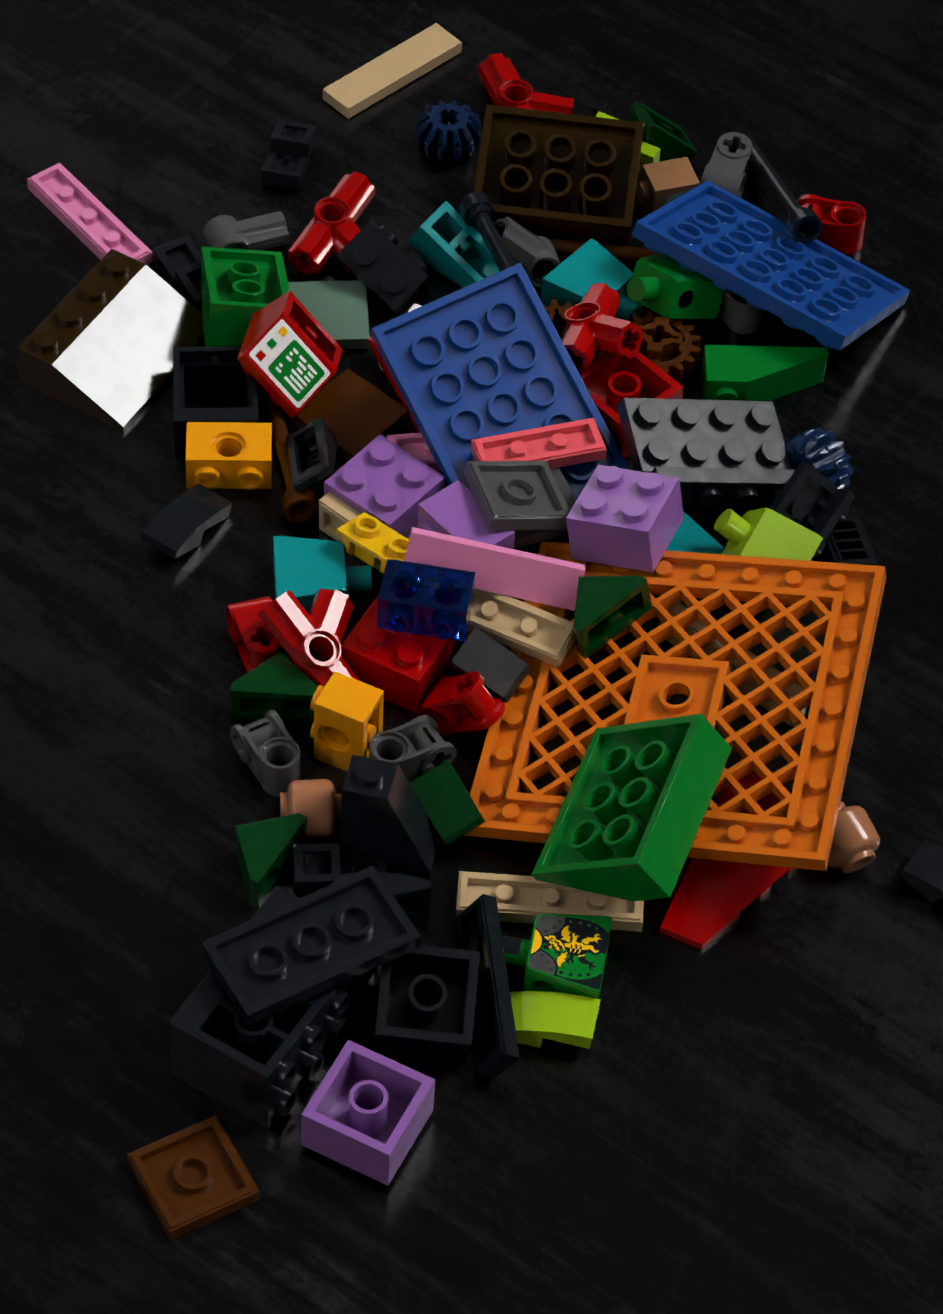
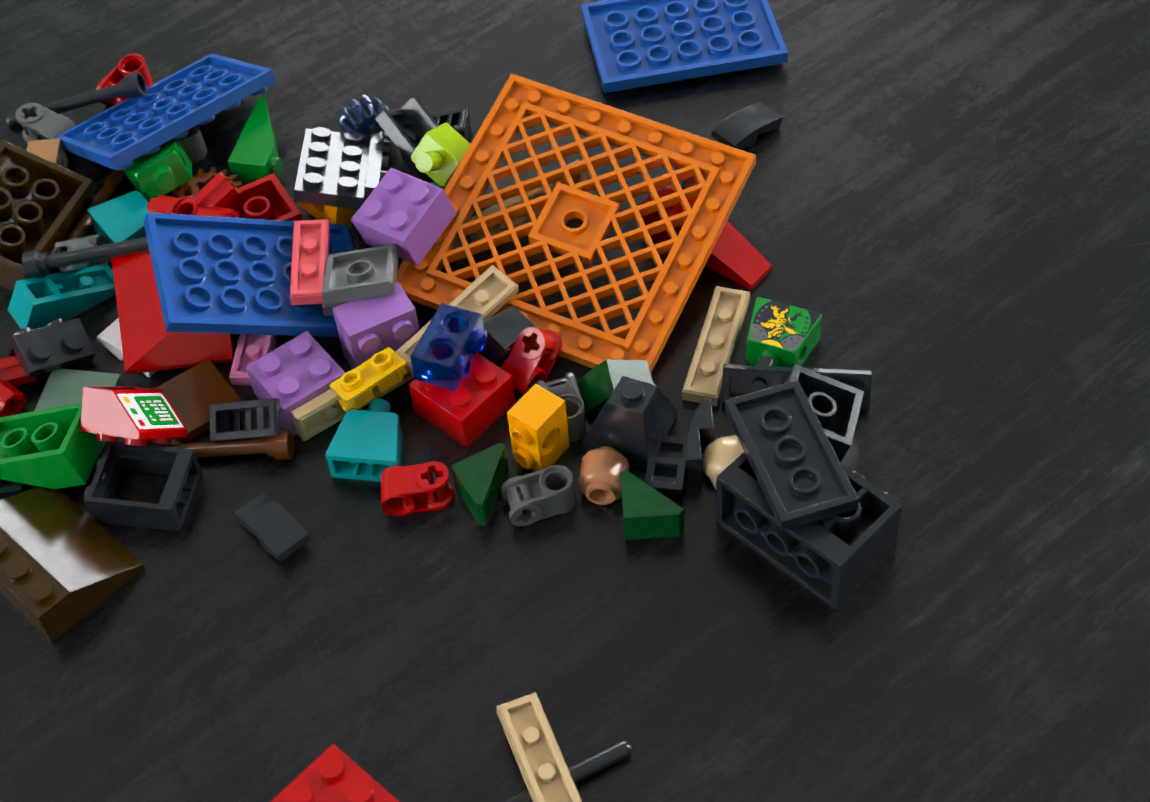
camera: 70 degrees left, 0 degrees up
(193, 1177) = (940, 603): reddish brown tile -> none
(229, 455) = (213, 485): light orange brick -> none
(317, 630) = (443, 438): red piece -> none
(367, 1112) = (912, 466): medium lavender brick -> none
(500, 568) = (436, 287): bright pink tile -> none
(554, 1017) = (830, 346): lime slope -> none
(606, 608) = (484, 245): dark green slope -> none
(635, 808) = (678, 257): green slope -> none

